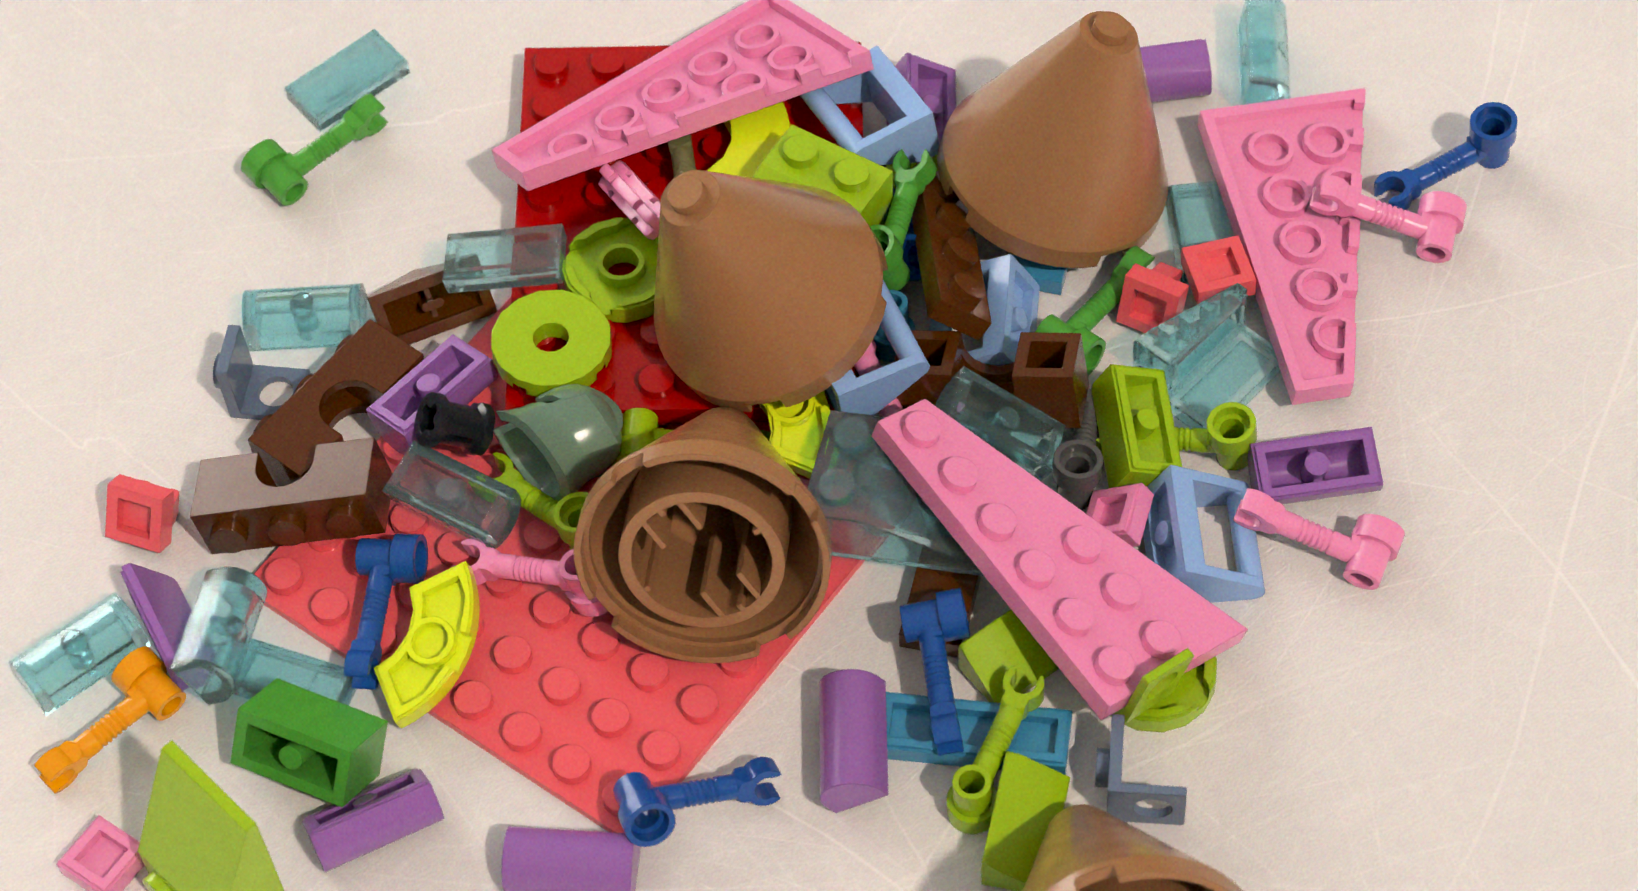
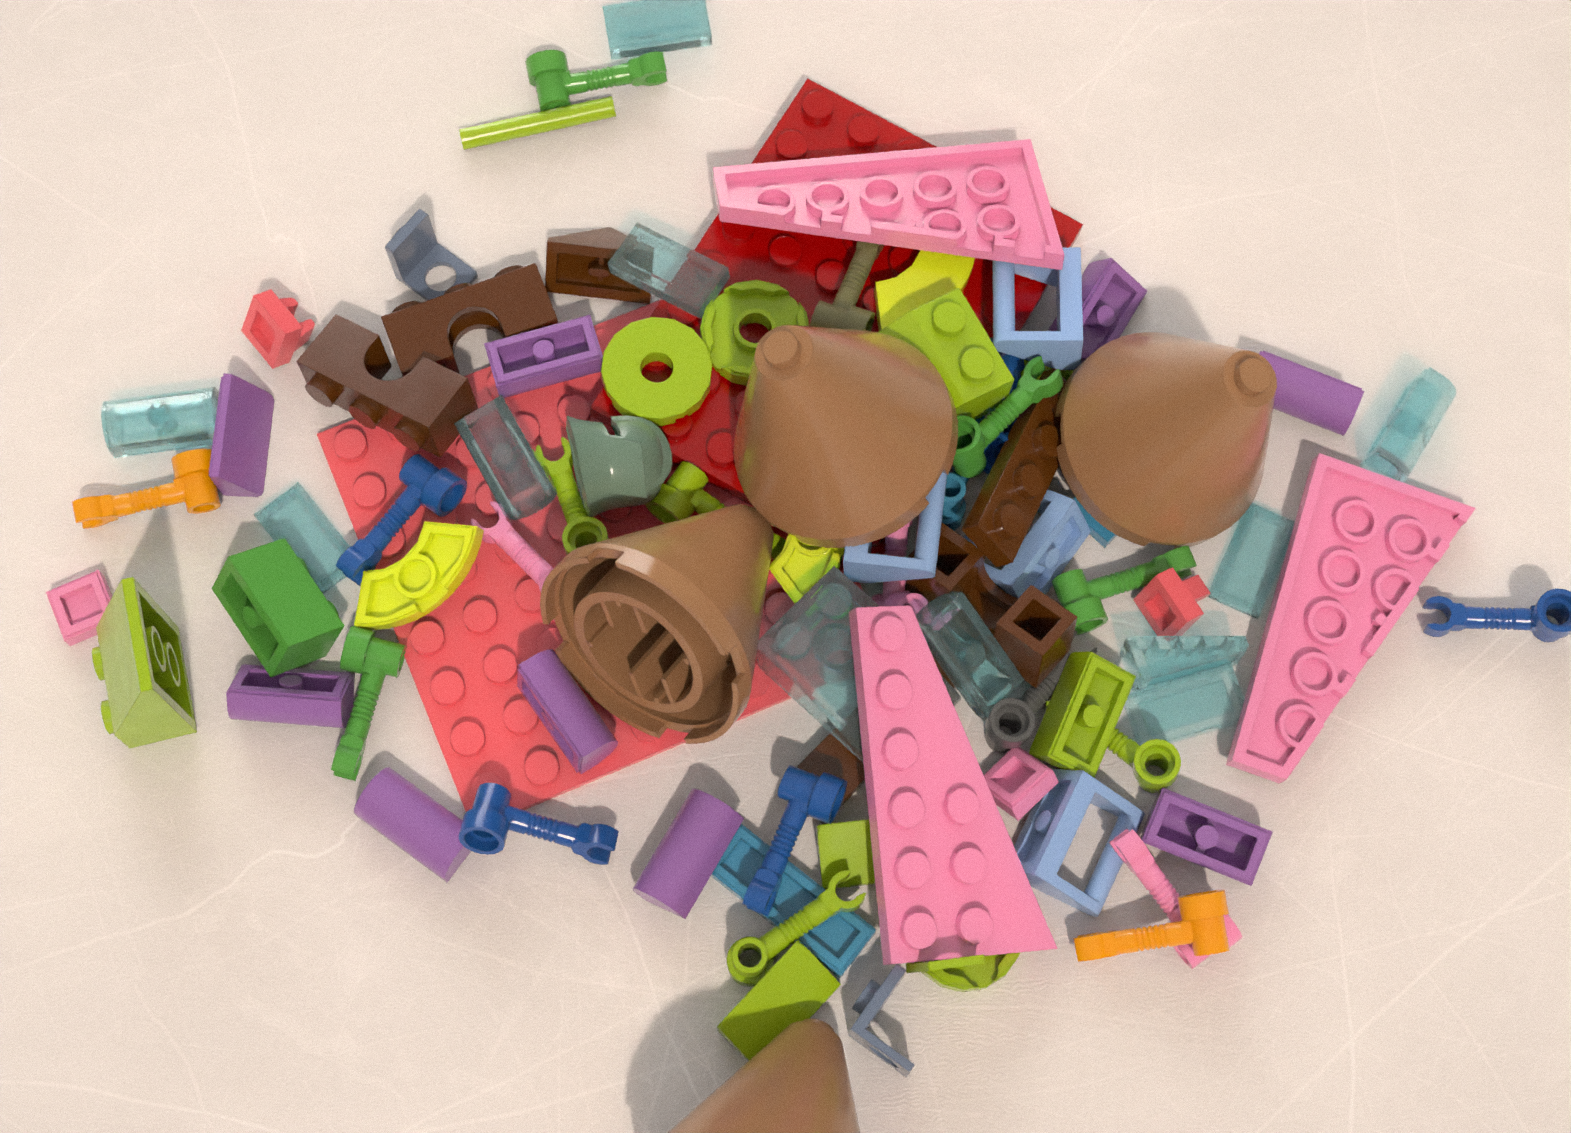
camera: 25 degrees right, 15 degrees up
(219, 632) = (266, 471): clear light blue brick -> none
(284, 216) = (537, 122): none -> lime bar
(302, 316) = (496, 223): clear light blue brick -> none
(434, 746) = (374, 660): none -> bright green brick
(454, 424) = (538, 400): black bush -> none
(632, 197) = (799, 279): bright pink axle -> none
(653, 680) = (565, 710): none -> medium lavender brick
(1217, 266) = (1239, 610): coral tile -> none
(1361, 534) = (1200, 926): none -> light orange brick
(1434, 225) = (1450, 670): bright pink brick -> none

